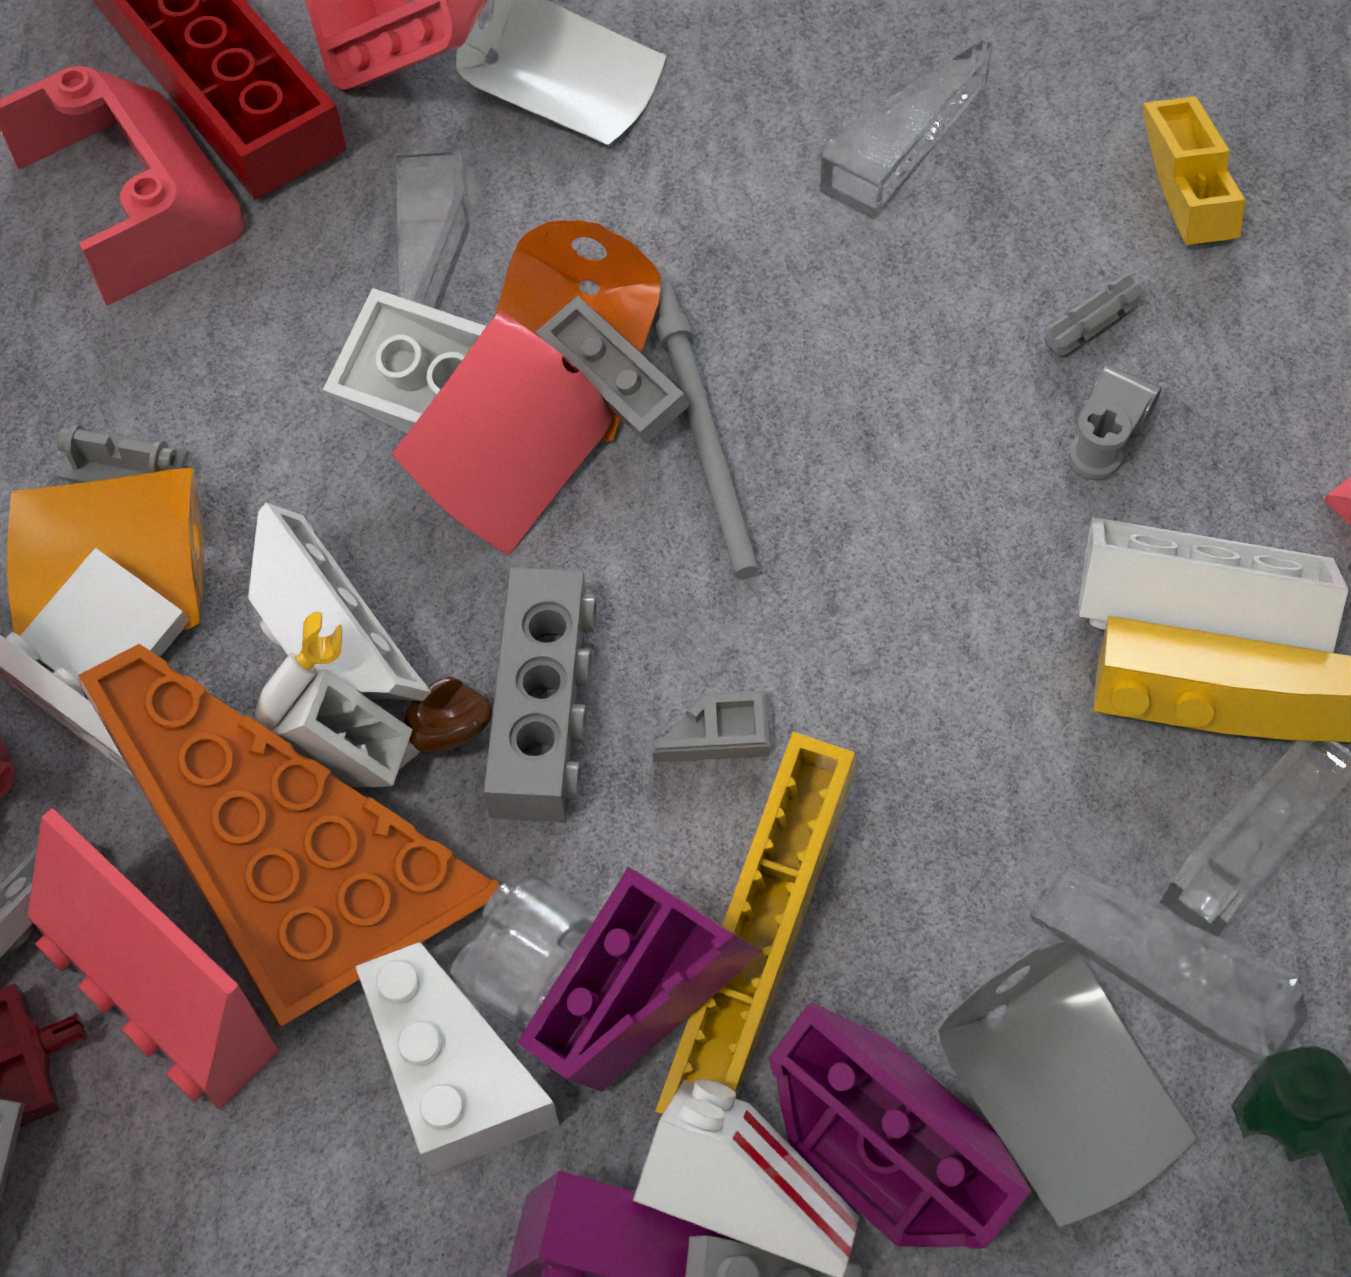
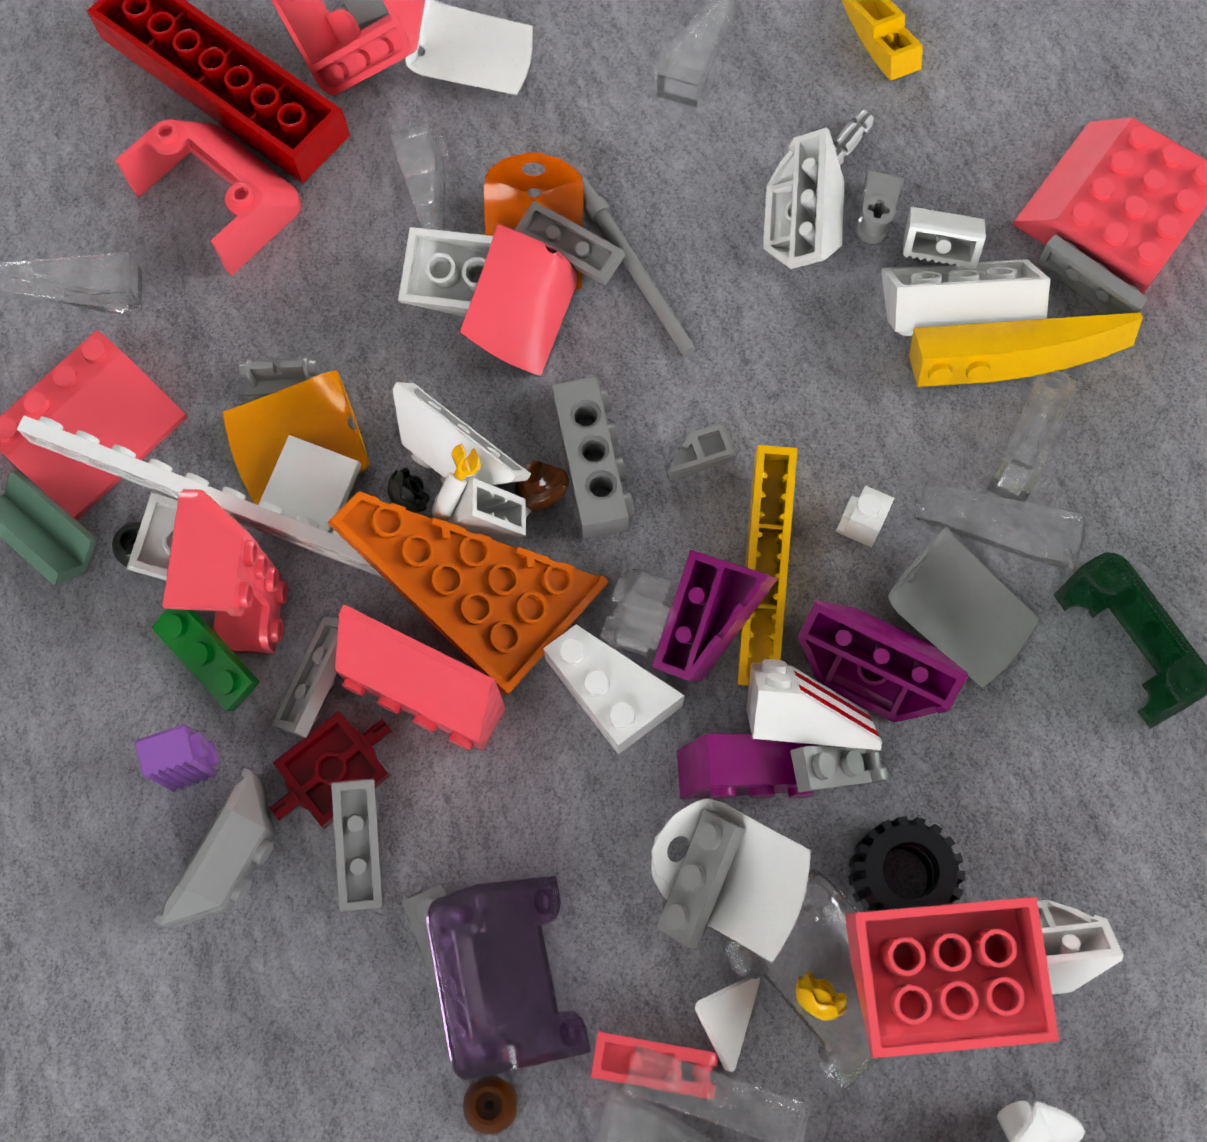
camera: 15 degrees left, 10 degrees up
(239, 673) = (407, 491): none -> pearl dark grey plate
(946, 893) = (865, 516): none -> white brick
(996, 390) = (805, 202): none -> white wedge
(1198, 490) = (944, 237): none -> white brick

